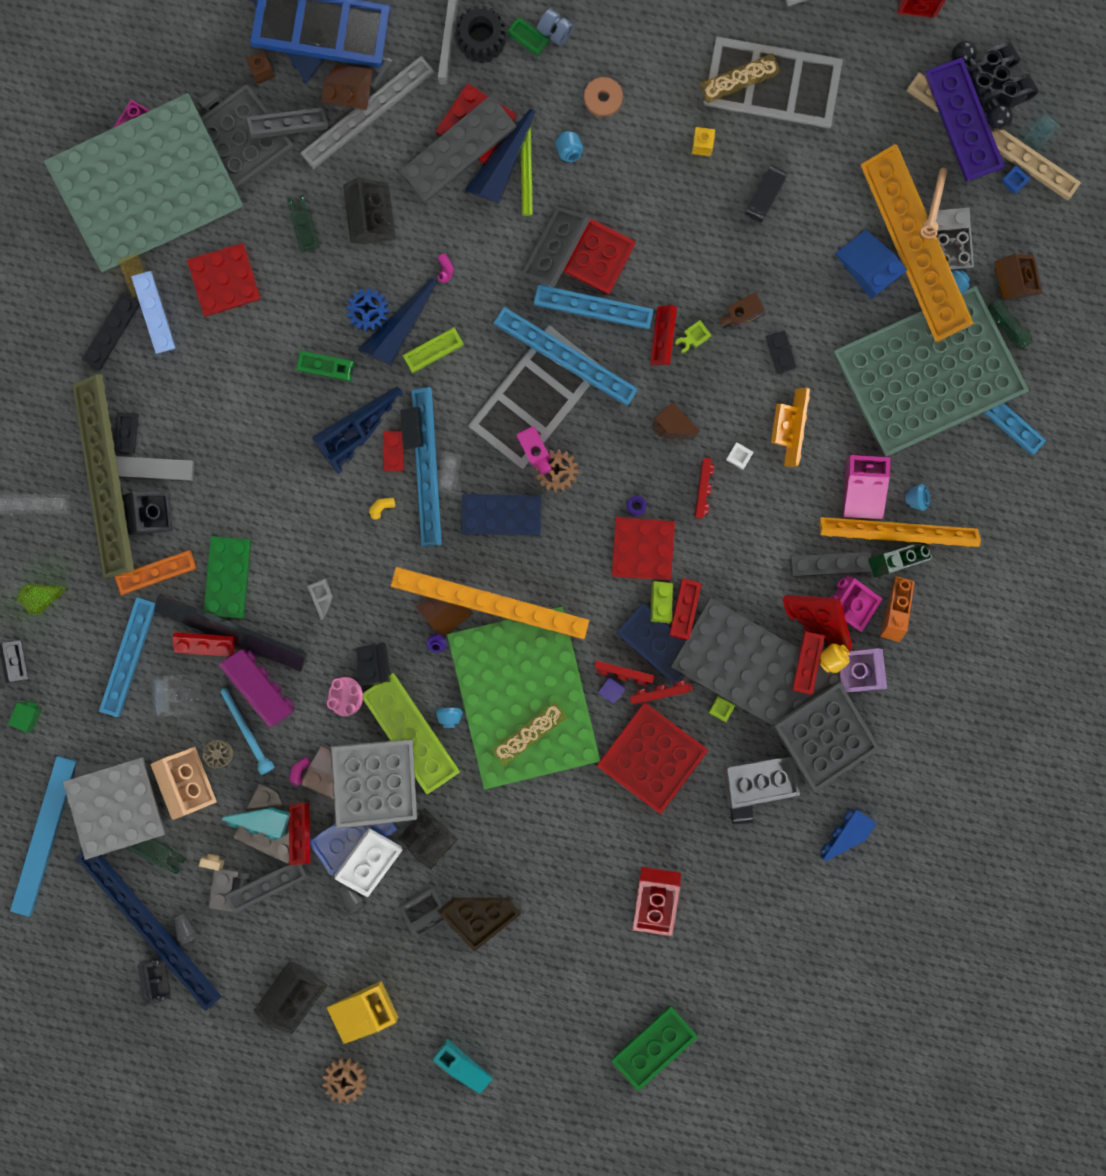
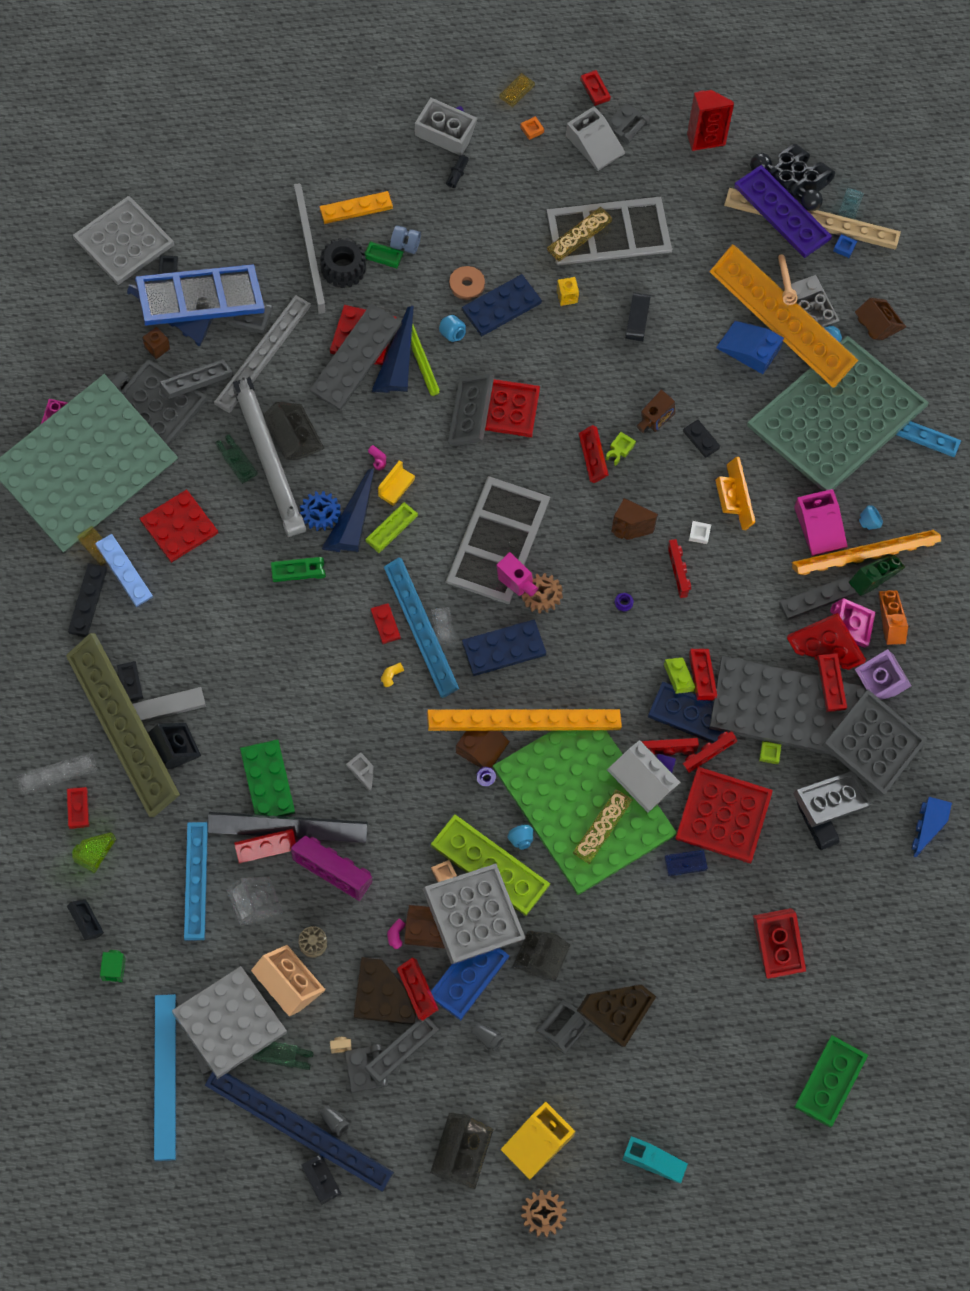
camera: 20 degrees left, 20 degrees down
(38, 547) = (78, 807): none -> red plate
(156, 572) = (197, 797): orange tile -> none
(264, 764) = (361, 939): medium azure piece -> none
(267, 821) = (381, 983): teal slope -> none
(334, 234) = (274, 472): none -> light grey piece
(343, 437) = (335, 624): dark blue wedge -> none
(345, 696) = (416, 850): bright pink dish -> none
(347, 87) = (241, 336): reddish brown slope -> none
(365, 725) = (443, 871): none -> light nougat tile
(368, 862) = (493, 993): white plate -> none
(373, 664) = (433, 813): black plate -> none
(411, 428) = (396, 597): black tile -> none
(452, 304) = (395, 484): none -> yellow panel
(565, 356) = (513, 496): dark azure tile -> none
(586, 698) = (643, 776): none -> light grey slope
(593, 307) = (522, 449): dark azure plate -> none
(597, 793) = (685, 862): none -> clear blue plate
(630, 134) = (501, 305): none -> dark blue plate
(643, 548) = (644, 637): red plate -> none
(834, 658) = (854, 670): yellow head -> none
(1009, 324) = (889, 357): clear green hinge -> none

